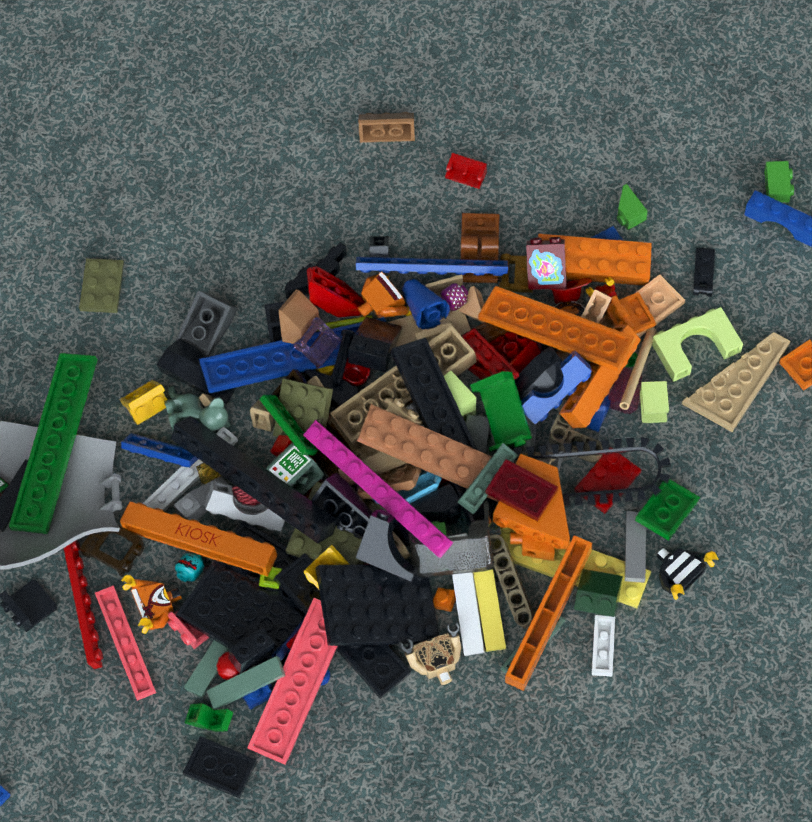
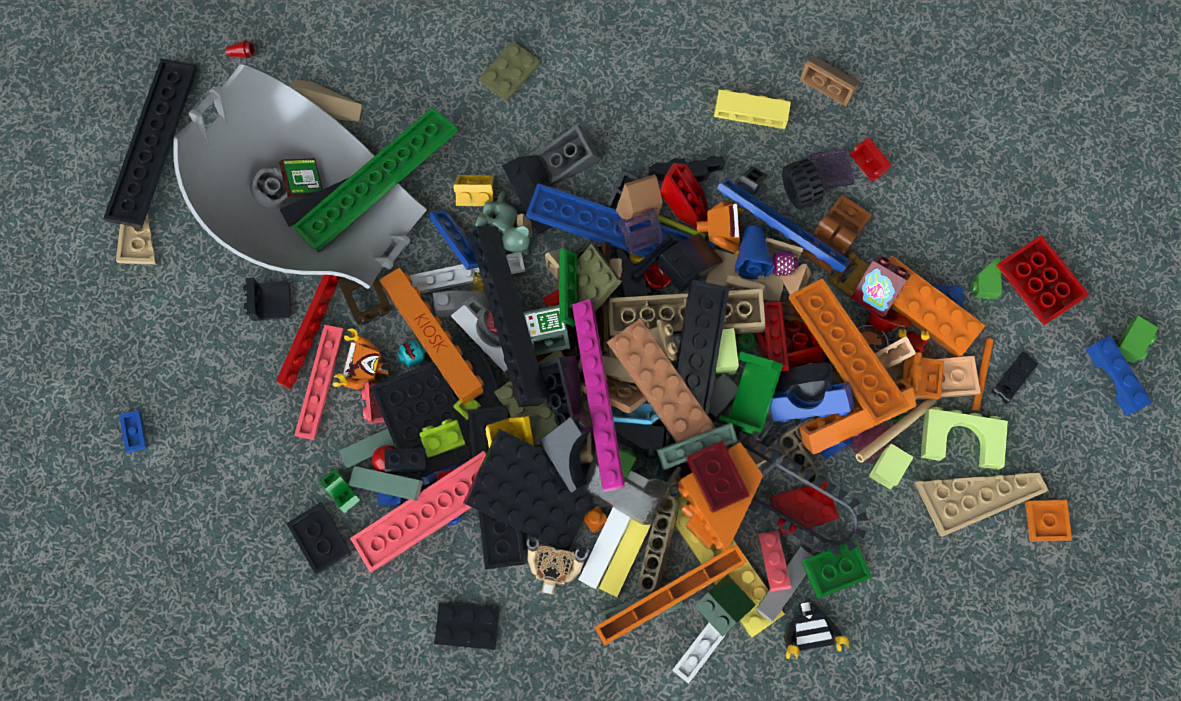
camera: 30 degrees right, 10 degrees up
(268, 614) = (442, 438): none -> lime bracket
(337, 189) = (752, 109): none -> light yellow brick
(398, 753) = (467, 626): none -> black plate
(424, 223) = (802, 183): none -> black tyre
(439, 198) = (833, 168): none -> clear purple plate
(467, 375) = (746, 346): none -> green plate
(613, 534) = (774, 561): none -> coral plate
(672, 180) = (1042, 280): none -> red slope
(676, 283) = (983, 373): none -> orange bar

